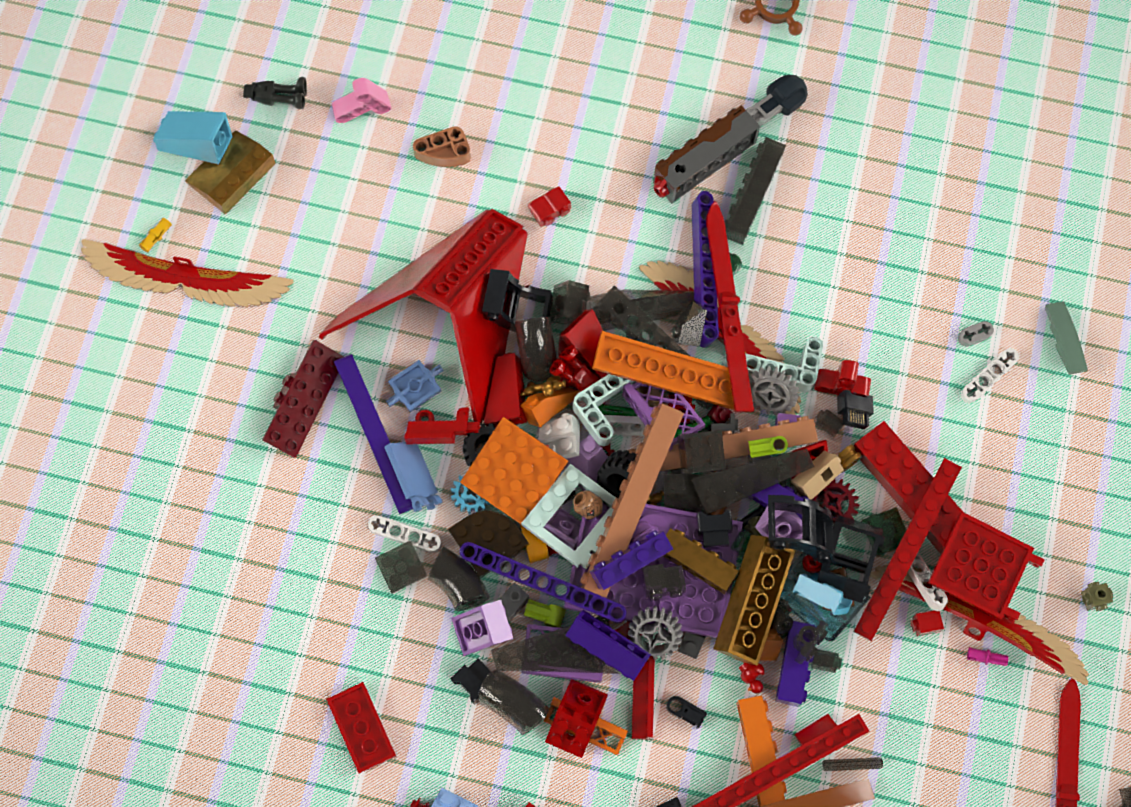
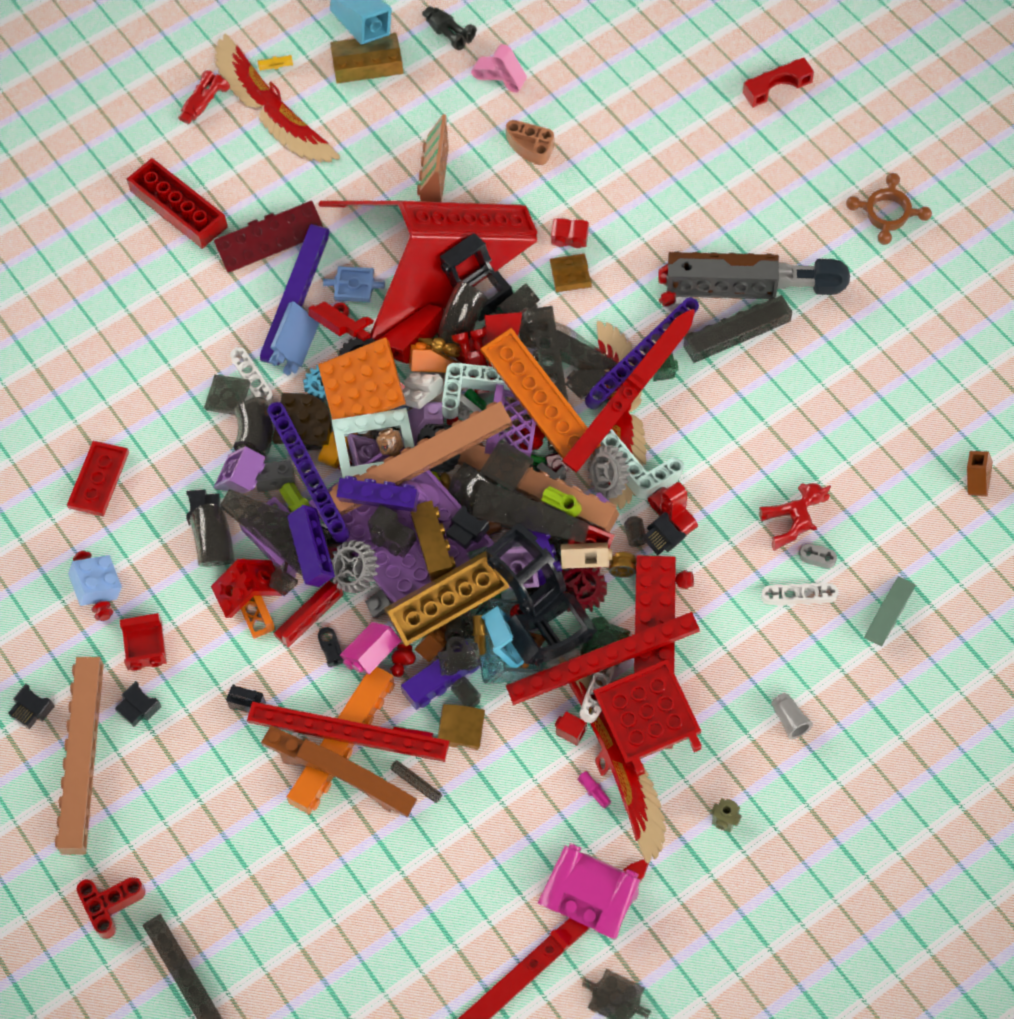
camera: 45 degrees right, 10 degrees down
(120, 315) = (201, 96): none -> red piece
(194, 429) = (177, 203): none -> red brick
(386, 227) = (434, 163): none -> nougat slope
(580, 241) = (570, 273): none -> pearl gold slope
(600, 690) = (281, 580): none -> clear smoke panel
(677, 205) = (667, 298): none -> red plate
(725, 688) = (370, 648): none -> dark pink brick
(798, 606) = (479, 633): none -> pearl gold axle
(845, 691) = (461, 725): none -> pearl gold slope
(901, 431) = (685, 579): none -> red plate
(931, 288) = (811, 495): none -> red animal
(1033, 175) = (979, 473): none -> dark orange slope
(1061, 739) = (590, 891): none -> dark pink piece
(1071, 479) = (791, 716): none -> light grey plant

